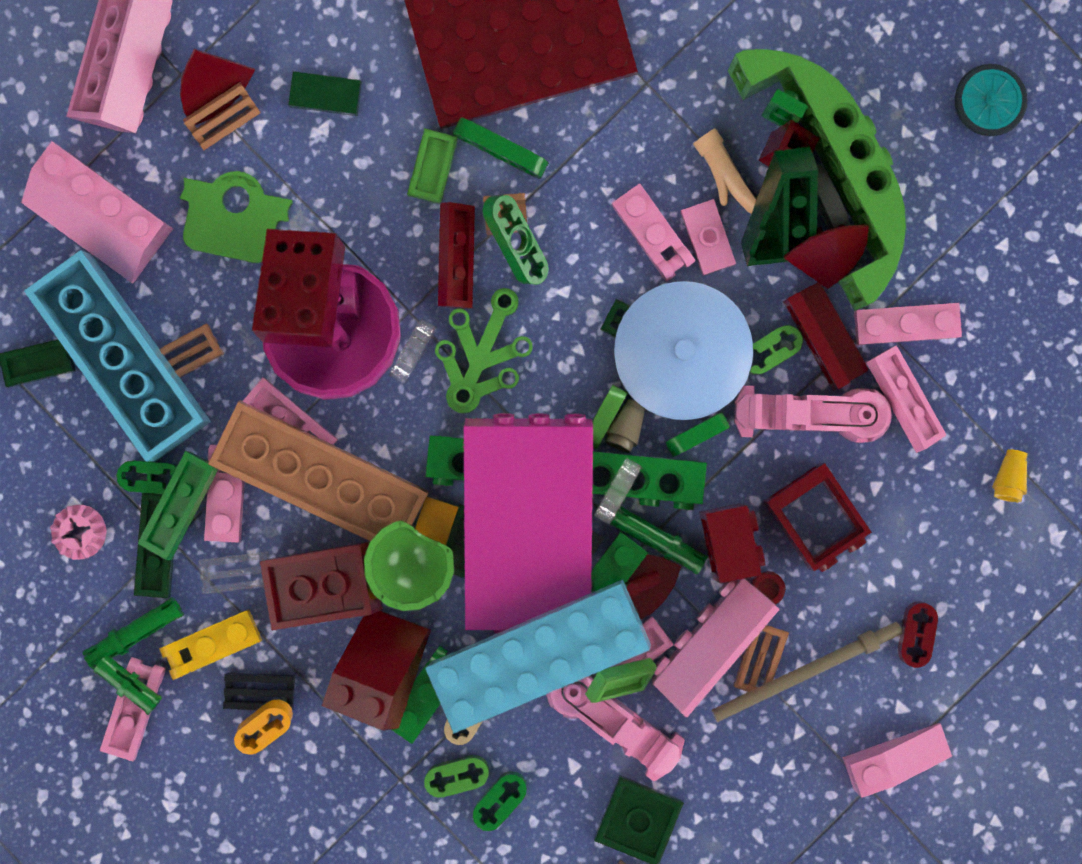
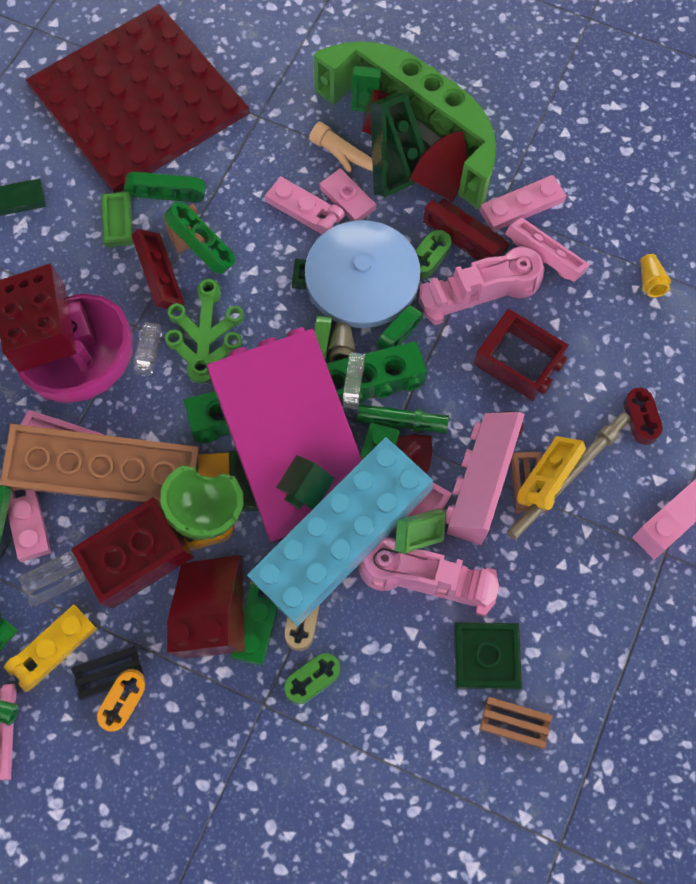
camera: 20 degrees left, 20 degrees down
(505, 806) = (352, 682): green beam -> none
(519, 594) = (304, 483): none -> dark green brick
(731, 542) = (461, 390): dark red brick -> none
(786, 667) = (551, 472): none -> yellow plate
(991, 100) = (509, 45): teal wheel -> none

